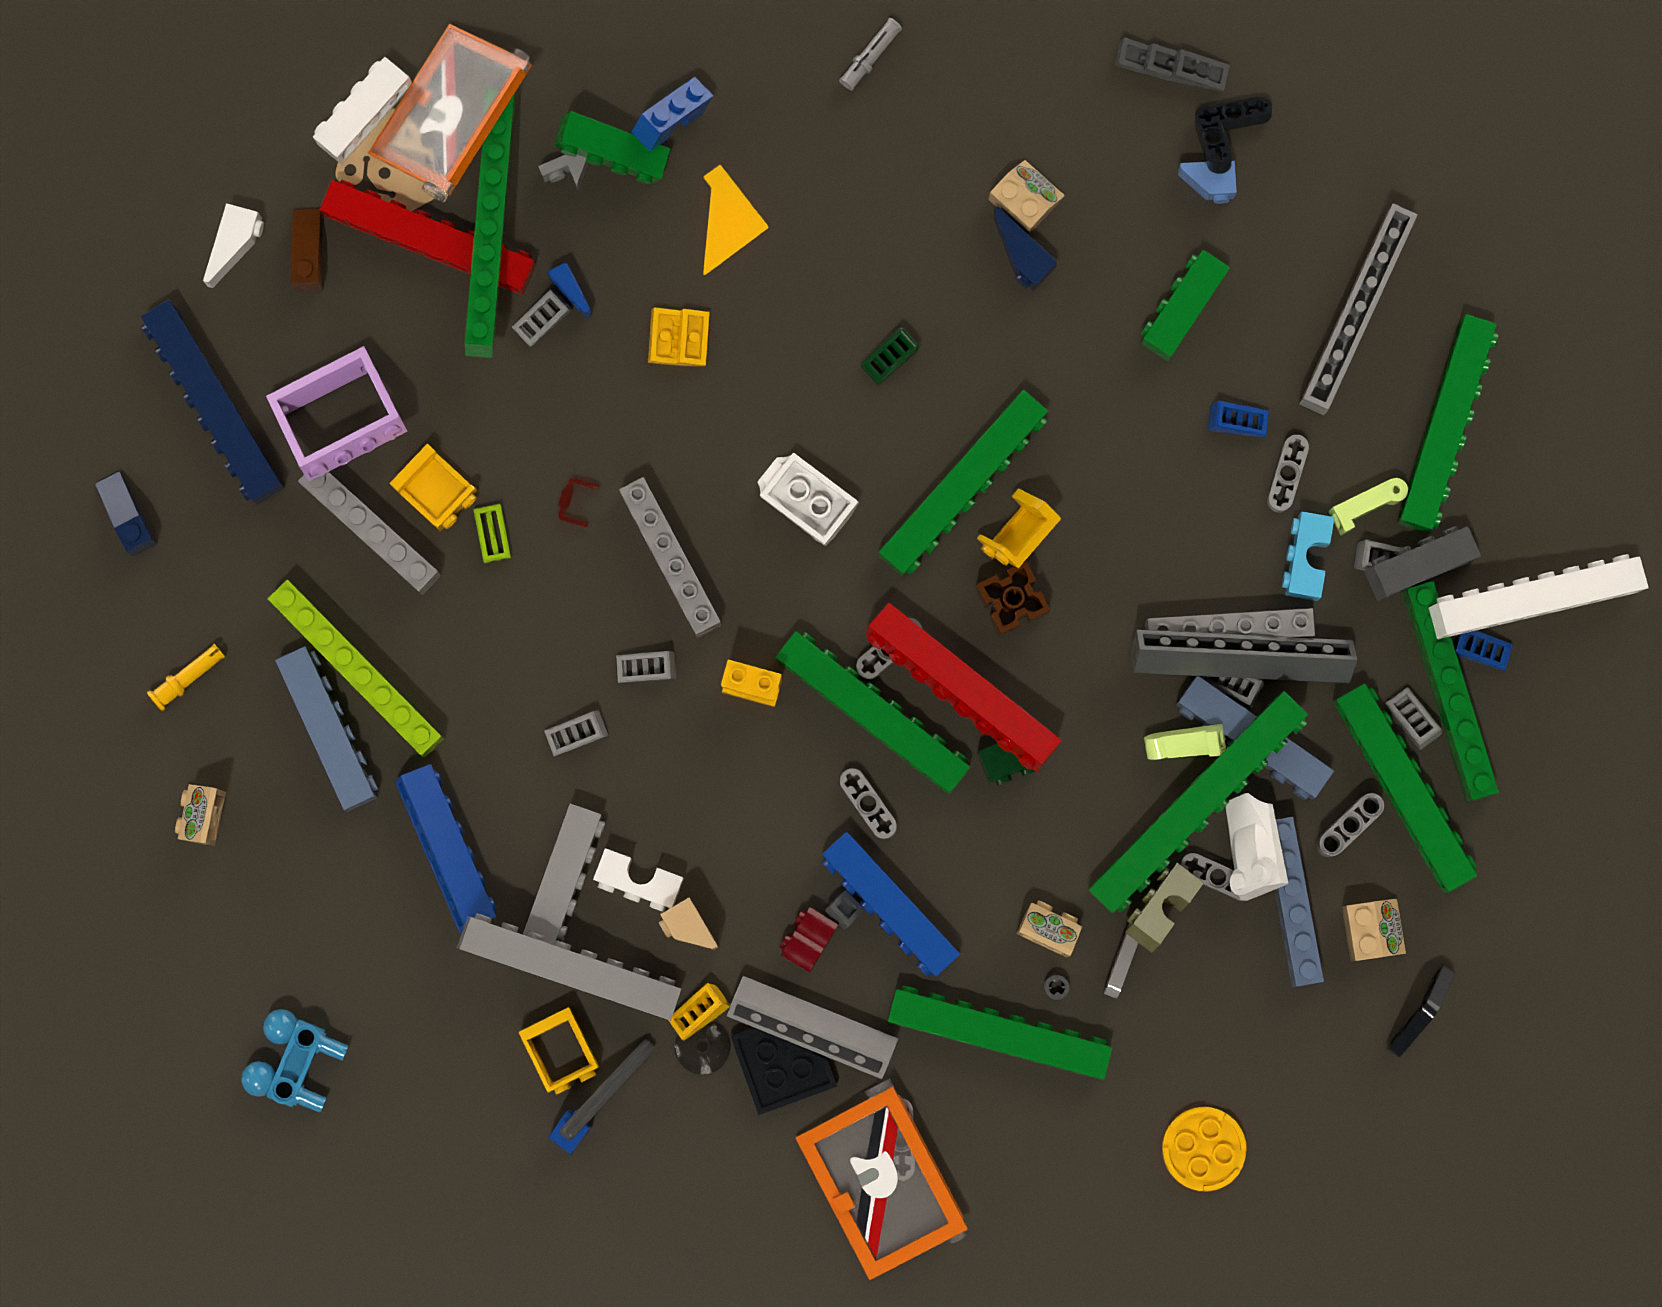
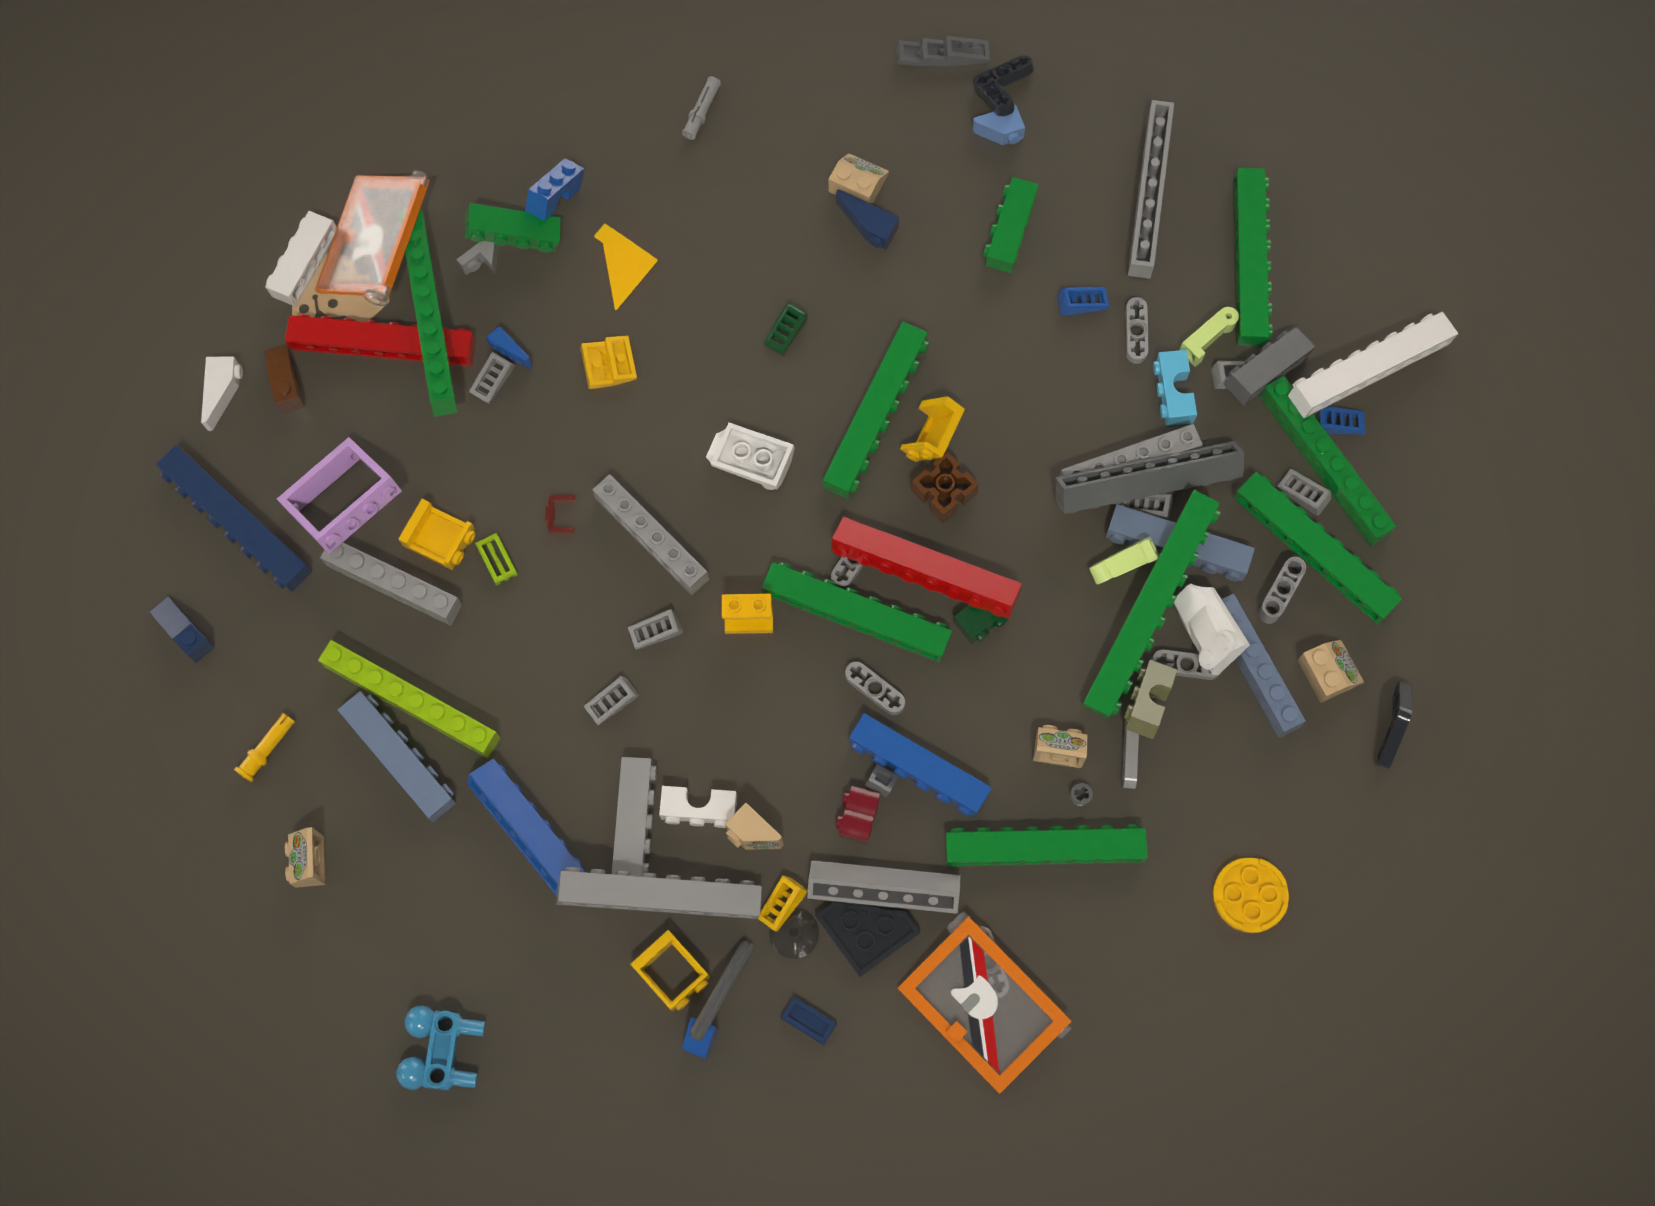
camera: 10 degrees left, 10 degrees down
(691, 1144) = (808, 1021): none -> dark blue tile

